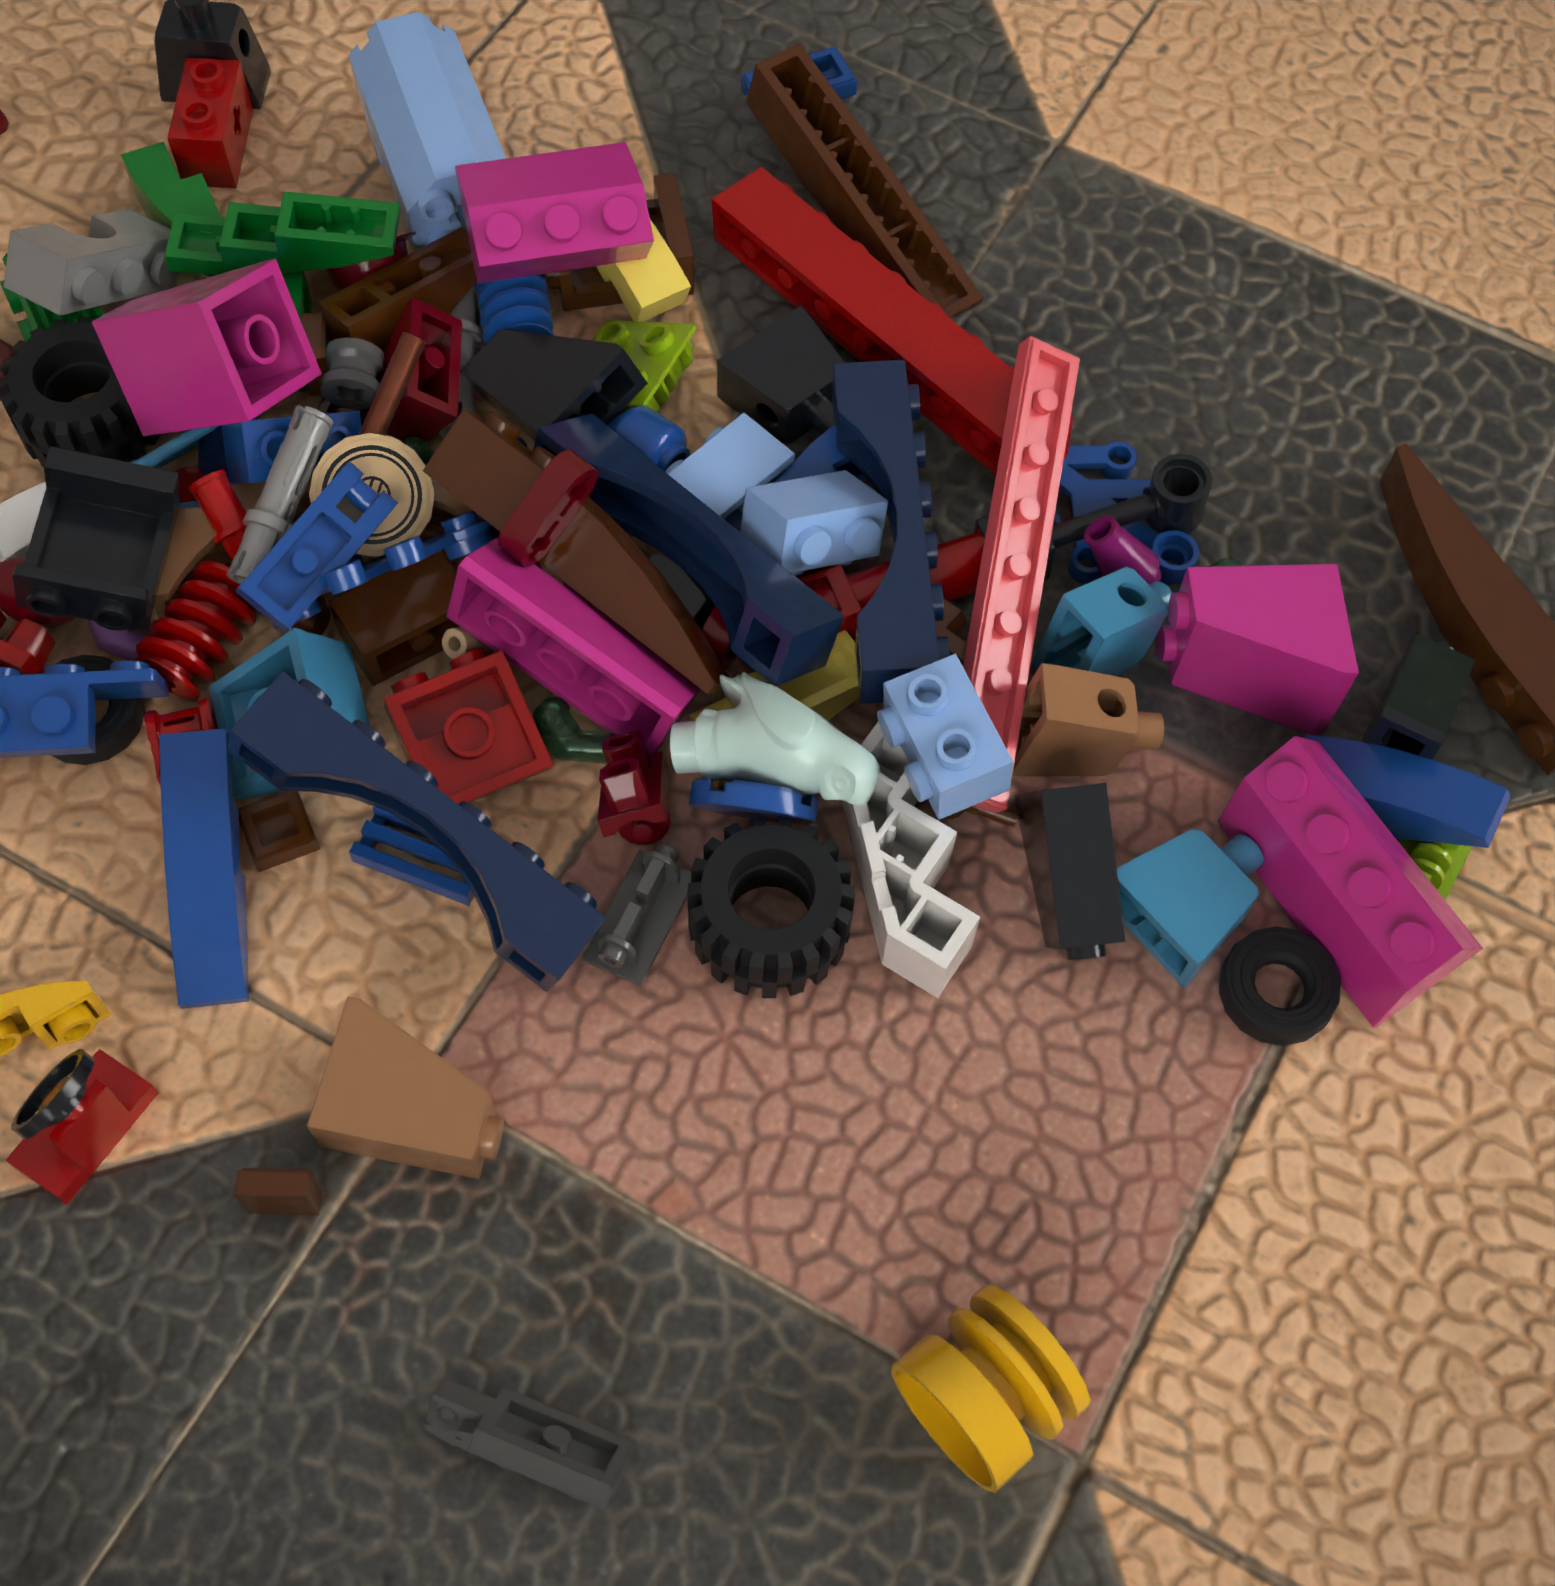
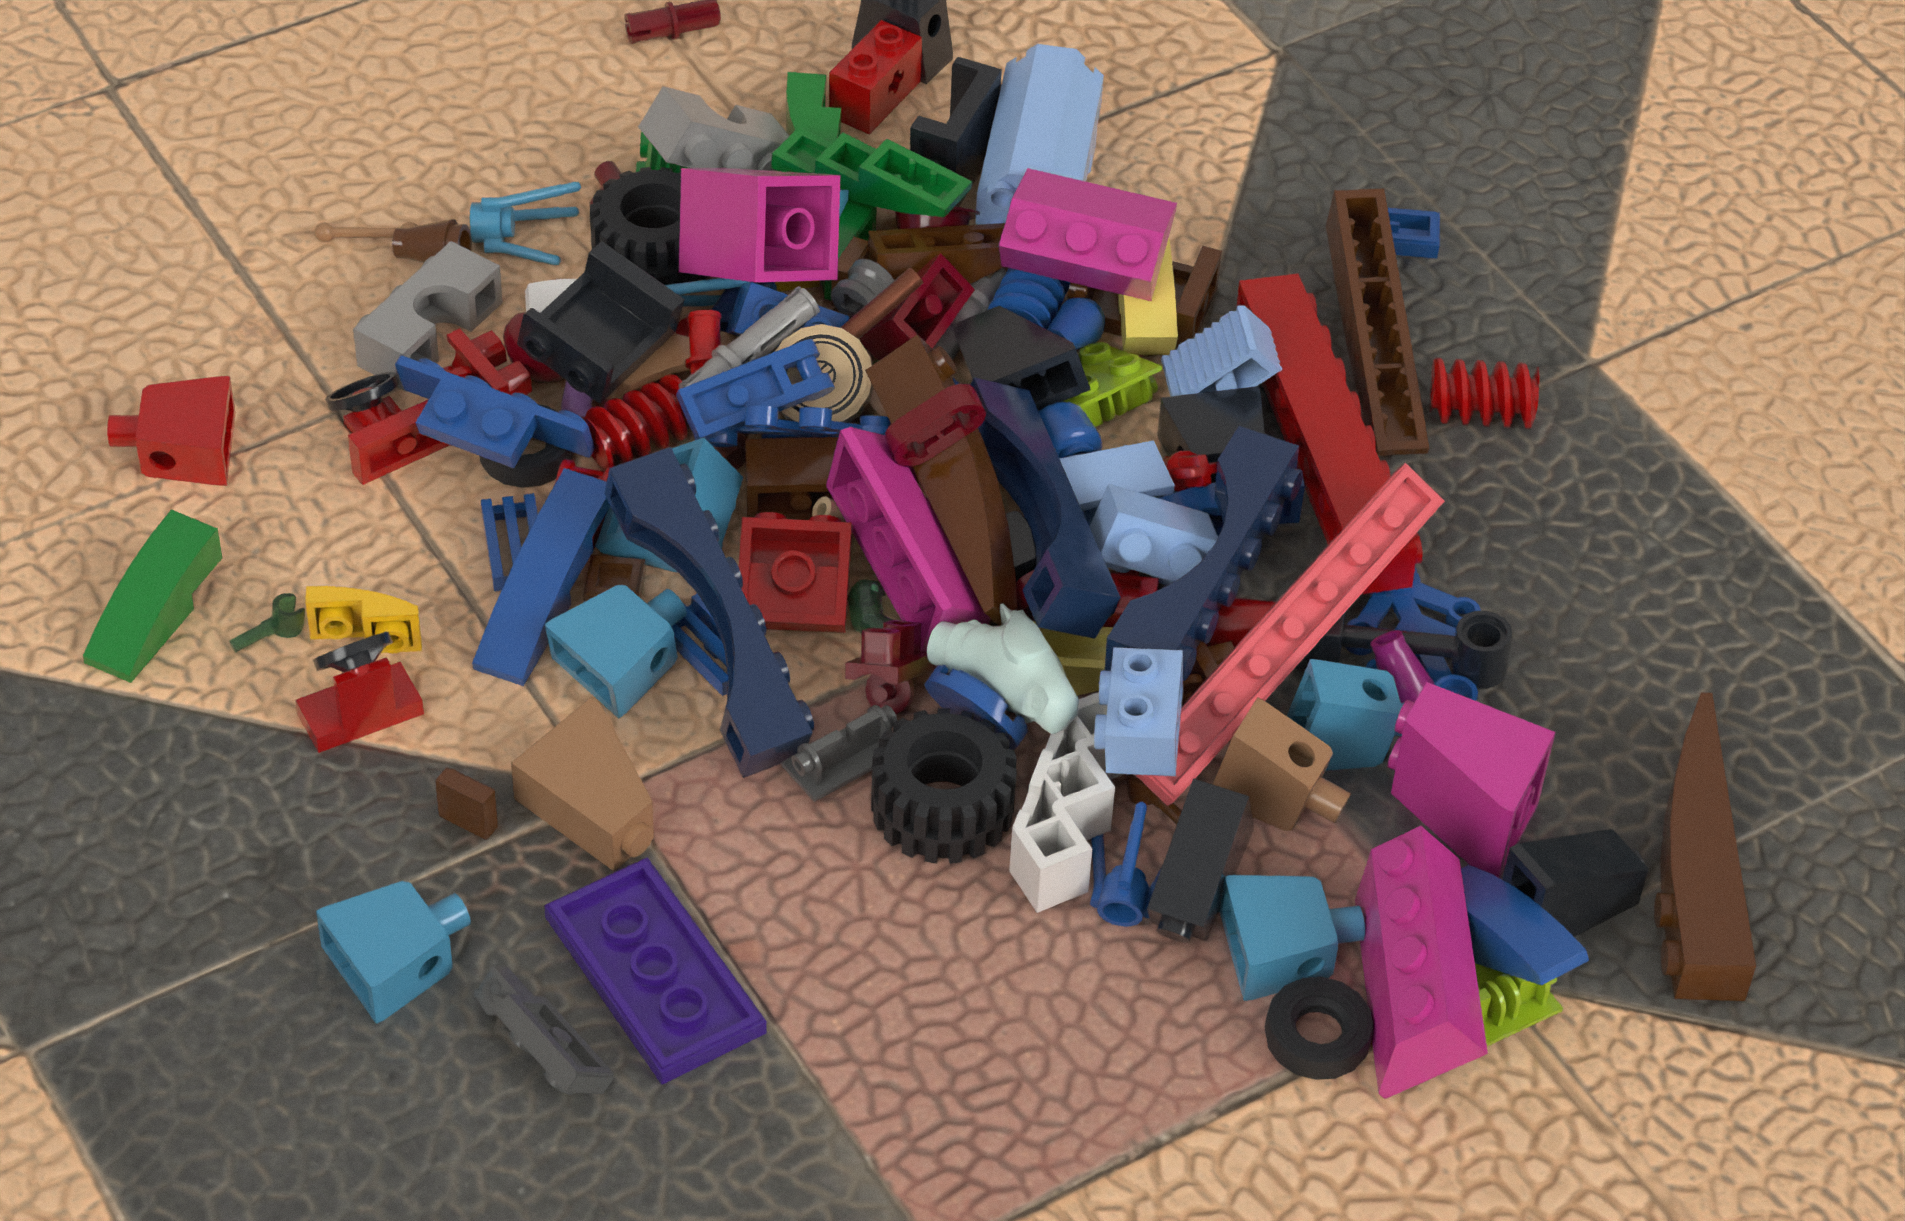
camera: 30 degrees right, 15 degrees down
(113, 797) = (509, 512): none -> blue tile
(298, 1420) = (391, 944): none -> dark azure torso
(330, 908) = (617, 644): none -> dark azure torso
(340, 134) = (965, 137): none -> black panel
(577, 310) = (1079, 322): none -> blue cone
(596, 1282) = (655, 970): none -> dark purple tile
(750, 291) = (1224, 357): none -> light blue brick
(798, 428) = (1189, 470): none -> red axle
(998, 214) = (1484, 392): none -> red piece
(1000, 1377) = (889, 1146): yellow wheel -> none
(1014, 929) = (1123, 893): none -> blue plant

